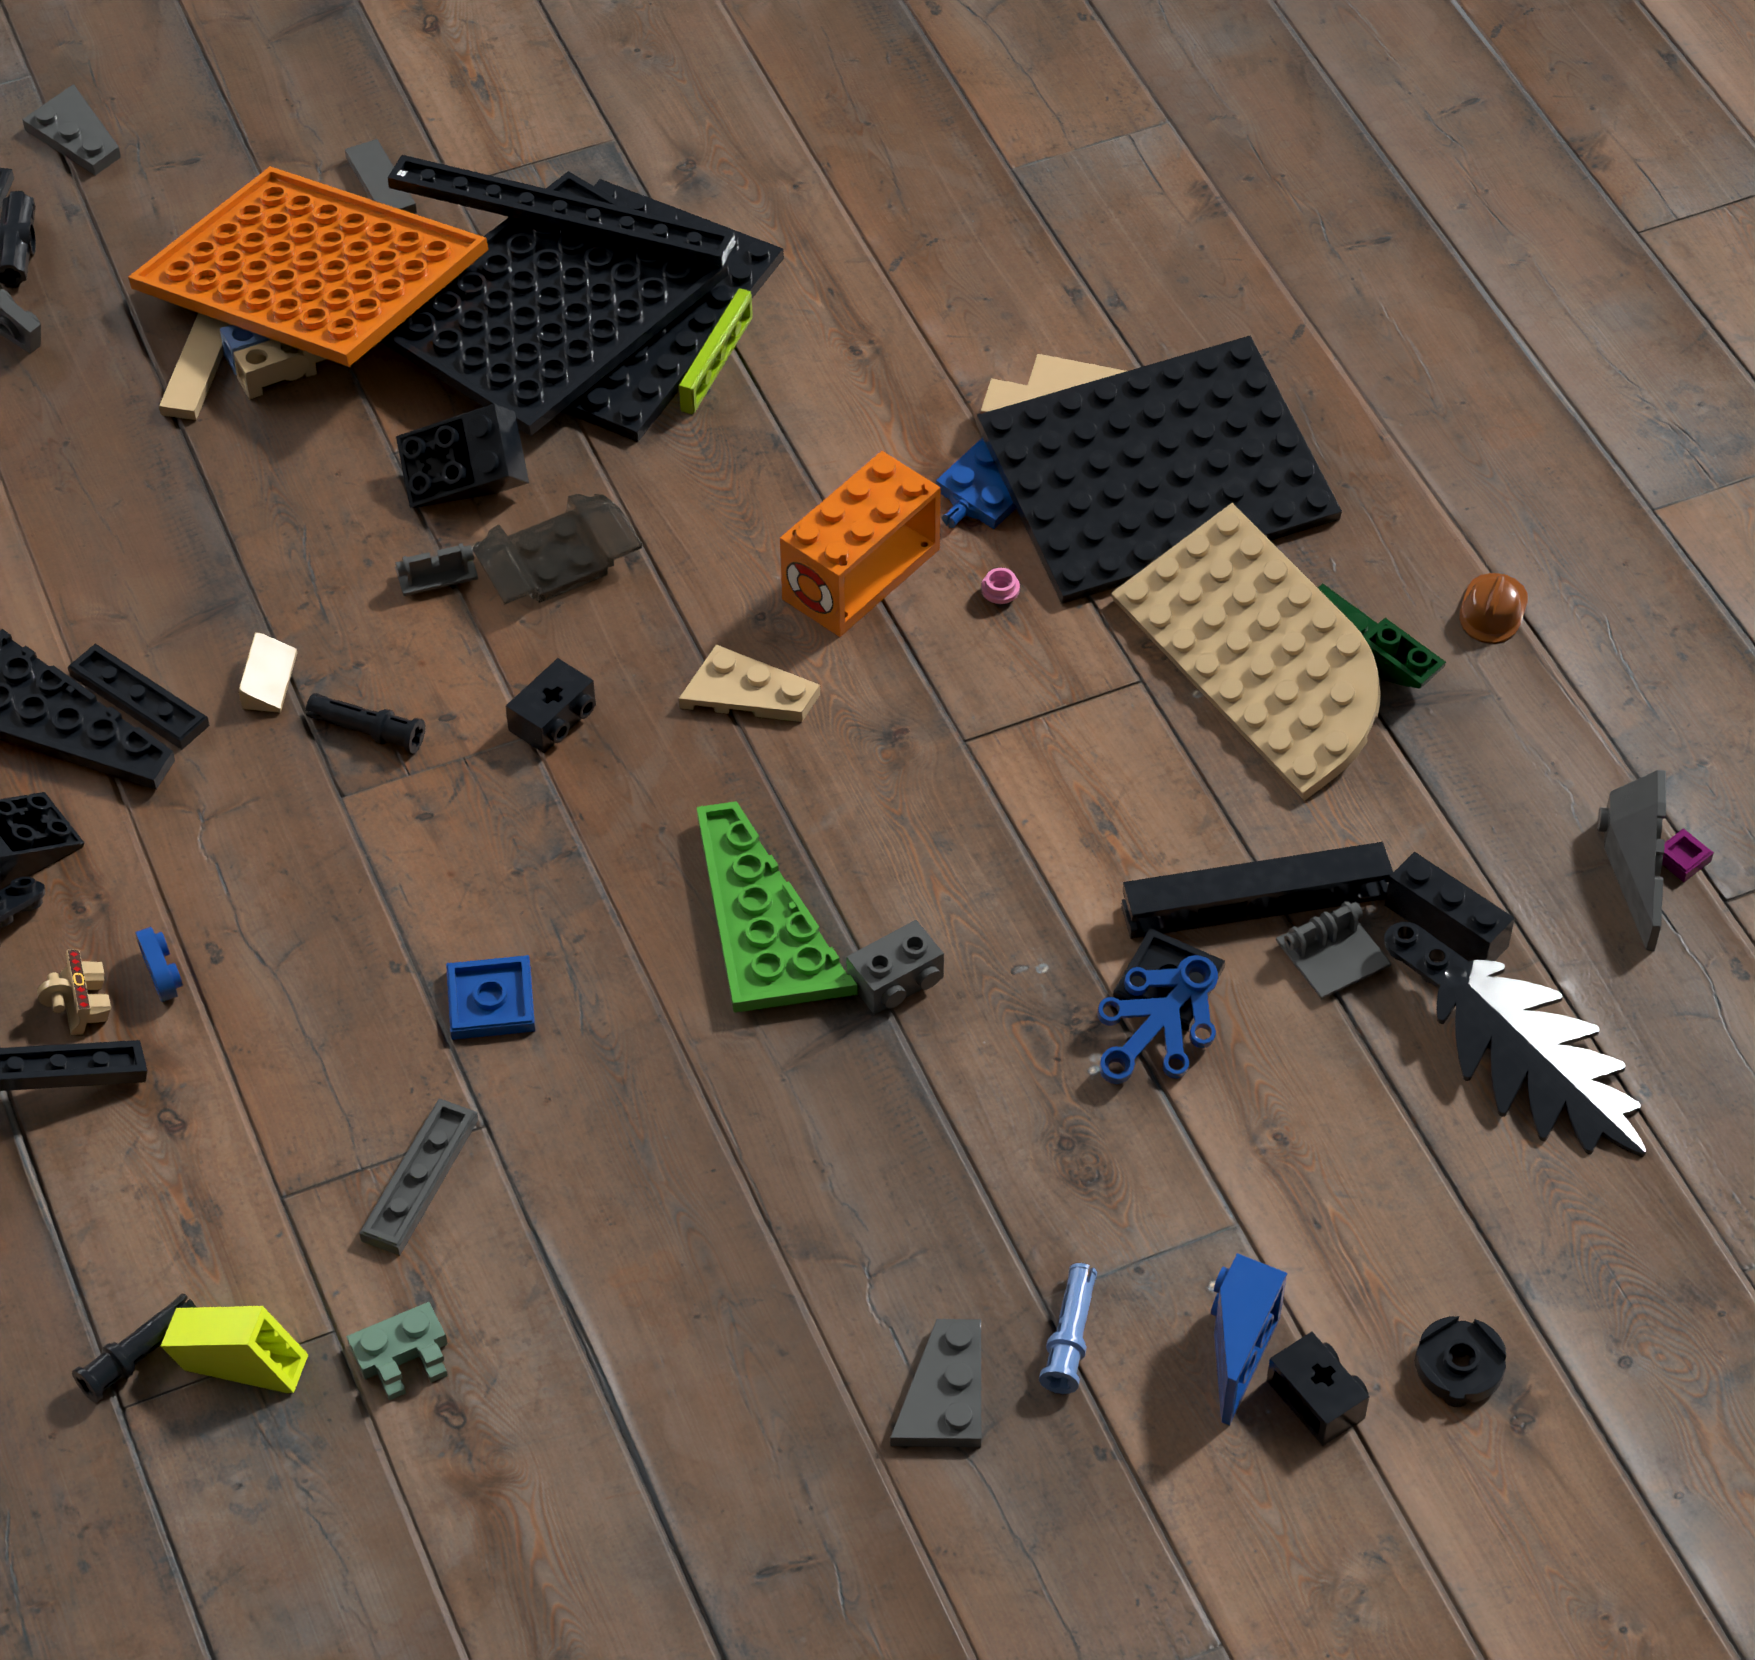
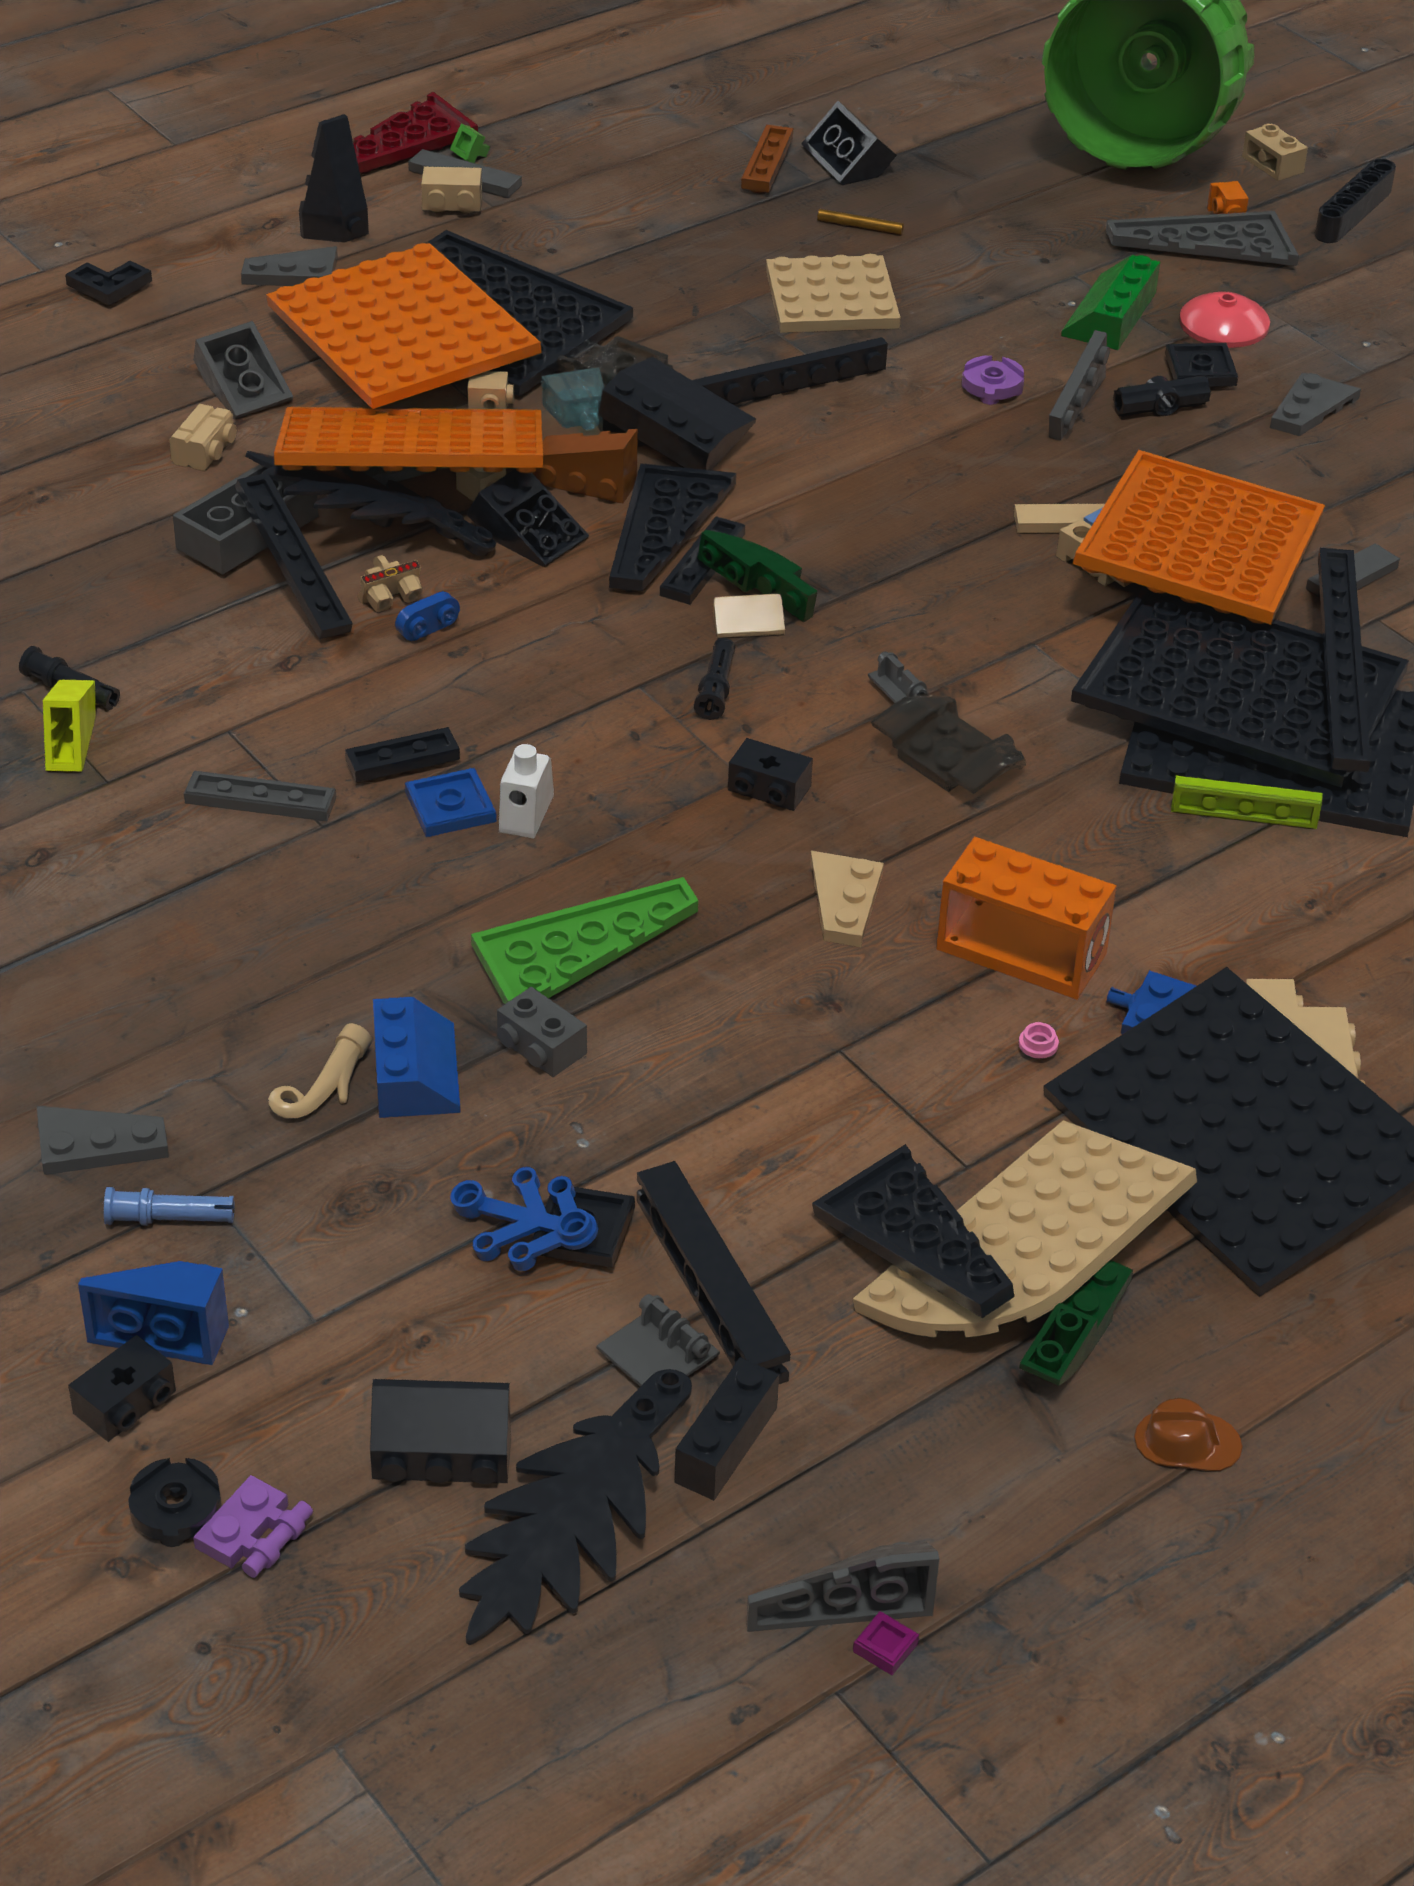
camera: 75 degrees right, 10 degrees down
(196, 643) = (758, 567): none -> dark green slope
(397, 1341) = (88, 813): sand green plate -> none
(401, 1026) = (402, 754): none -> black plate
(463, 457) = (1027, 668): black slope -> none
(524, 916) = (529, 776): none -> white torso
(906, 1089) = (414, 1059): none -> blue slope
(911, 1162) = (349, 1047): none -> tan plant
(1242, 723) = (918, 1229): none -> black wing
(1435, 1127) = (440, 1431): none -> black slope
(1479, 1298) = (244, 1519): none -> medium lavender plate

